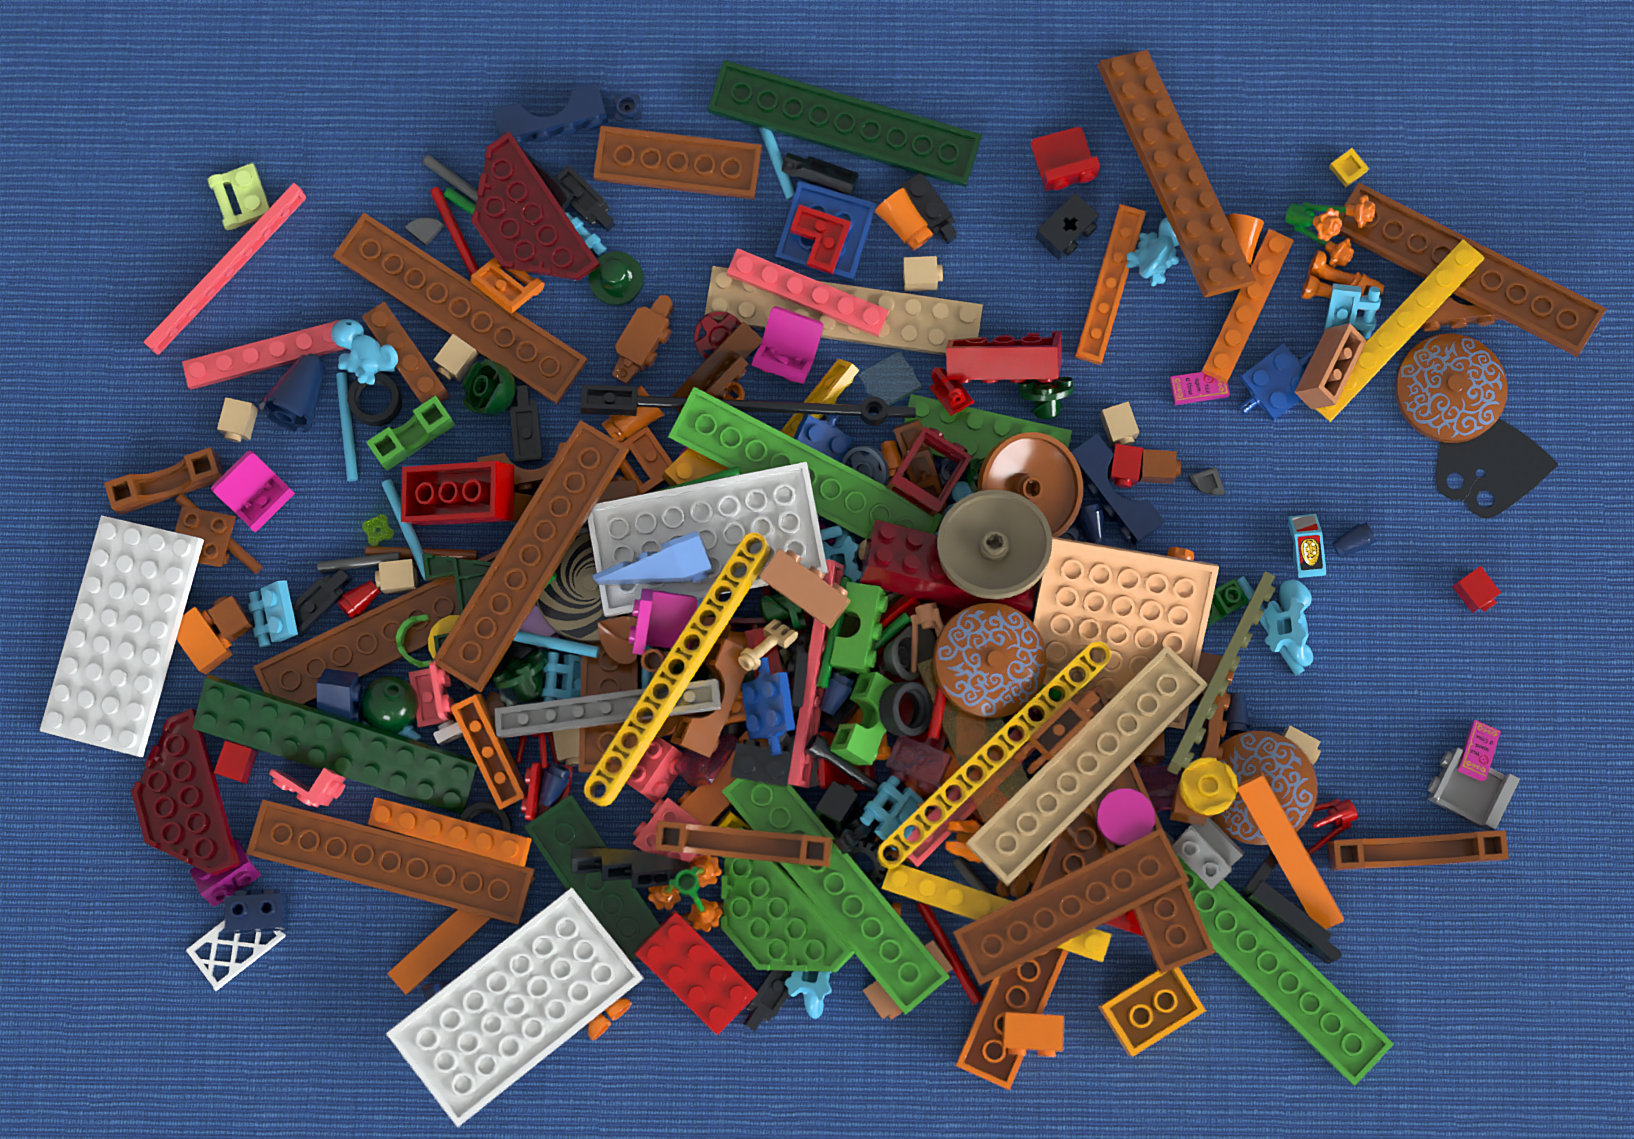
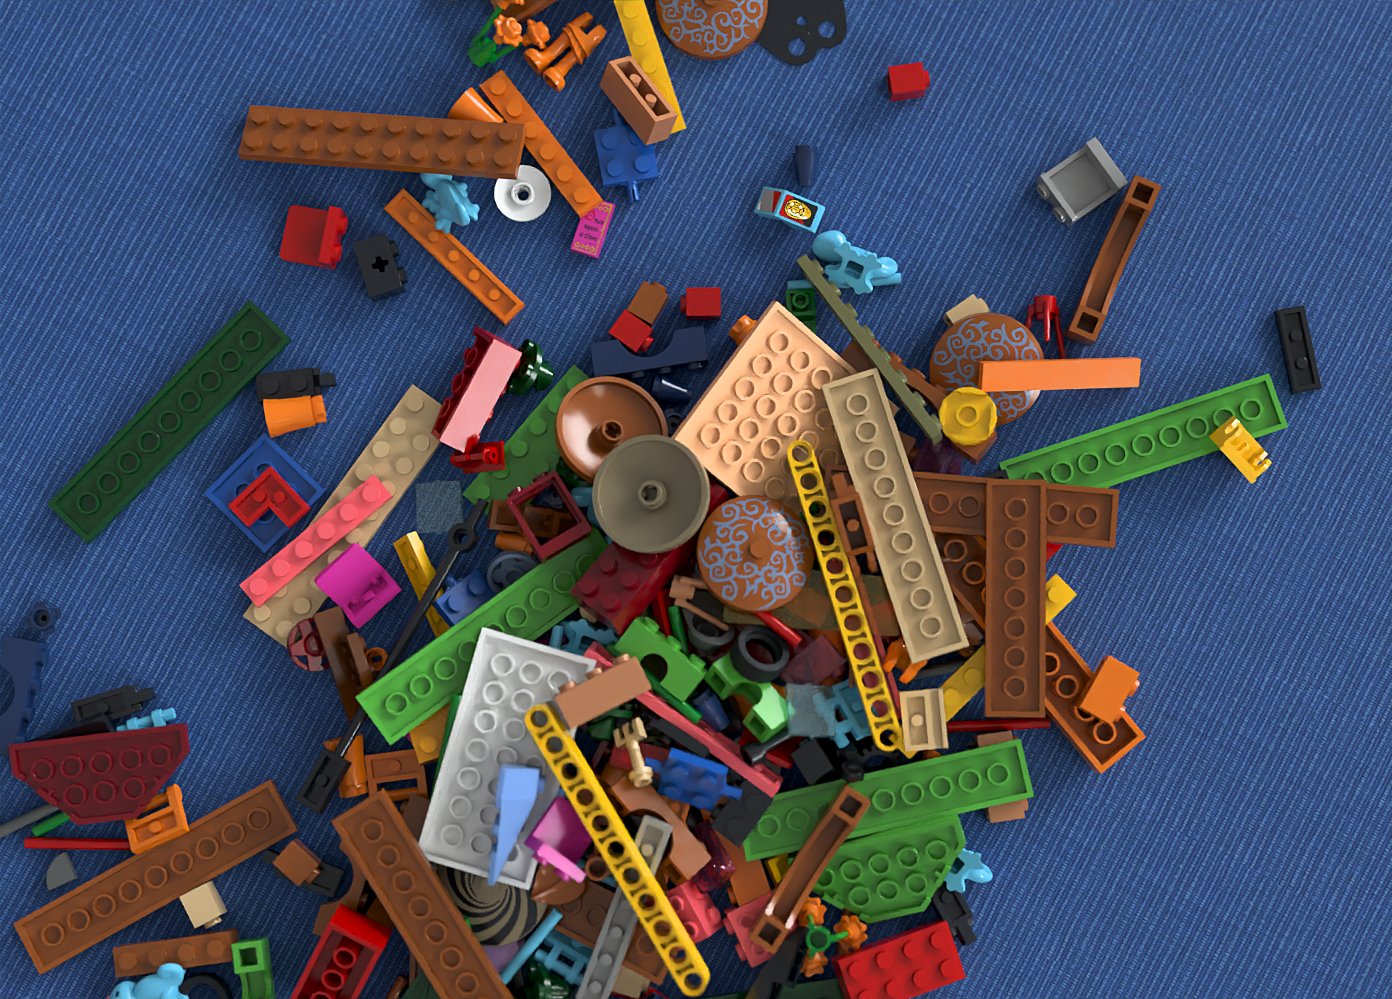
camera: 65 degrees left, 5 degrees up
(488, 388) = (250, 888): dark green cylinder -> none
(530, 416) = (298, 863): none -> dark orange brick
(617, 279) = (207, 711): dark green plate -> none
(642, 338) = (278, 718): dark orange hinge -> none
(677, 162) = (123, 598): dark orange plate -> none
(777, 161) = (175, 503): medium azure bar -> none
(820, 172) = (206, 468): black hinge -> none
(879, 776) = (810, 710): none -> clear light blue piece
(921, 273) = (353, 424): tan brick -> none
(922, 880) = (923, 719): none -> tan plate
(1119, 424) = (591, 318): tan brick -> none
(1125, 816) = (958, 505): dark pink tile -> none
(1151, 1009) = (1135, 572): light orange brick -> none
(1183, 512) = (702, 304): none -> red brick
(1192, 299) = (530, 181): none -> white dish
(1207, 851) = (1023, 447): light grey panel -> none
(1208, 482) = (685, 266): dark grey tile -> none
(1237, 715) = (911, 354): dark blue cone -> none
(1286, 915) = (1107, 408): black hinge -> none
(1311, 1050) = (1241, 449): none -> yellow hinge
(1344, 304) = (589, 57): medium azure plate -> none
(1429, 1061) = (1297, 349): none -> black tile
(1478, 750) = (1050, 158): dark pink tile -> none

